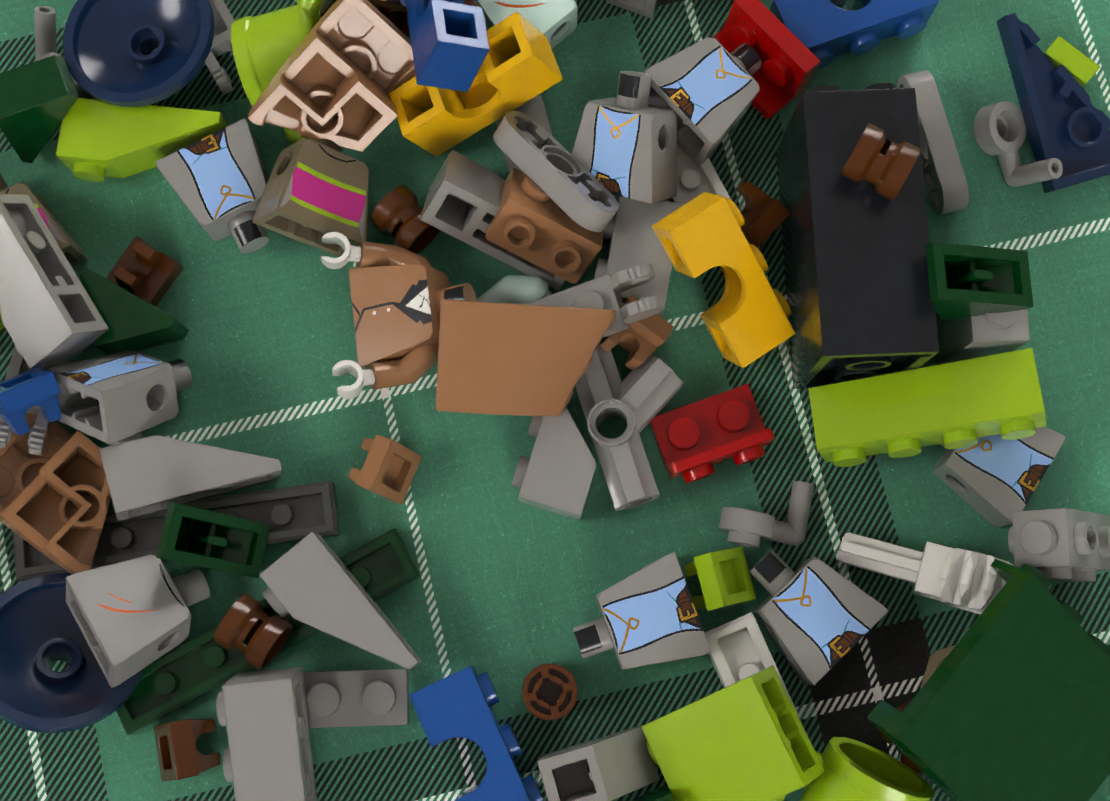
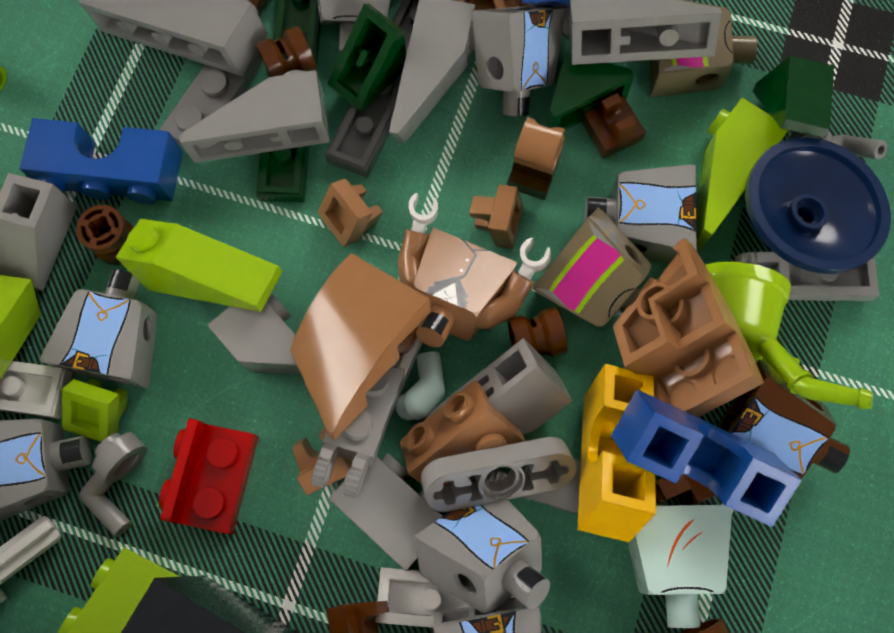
camera: 125 degrees right, 5 degrees down
(226, 316) = (536, 158): none -> medium nougat leg
(305, 320) = (499, 215): none -> medium nougat tile
(530, 561) = (196, 267): none -> lime slope
(637, 403) = (269, 427): light grey piece -> none
(750, 313) = (351, 563): yellow arch -> none

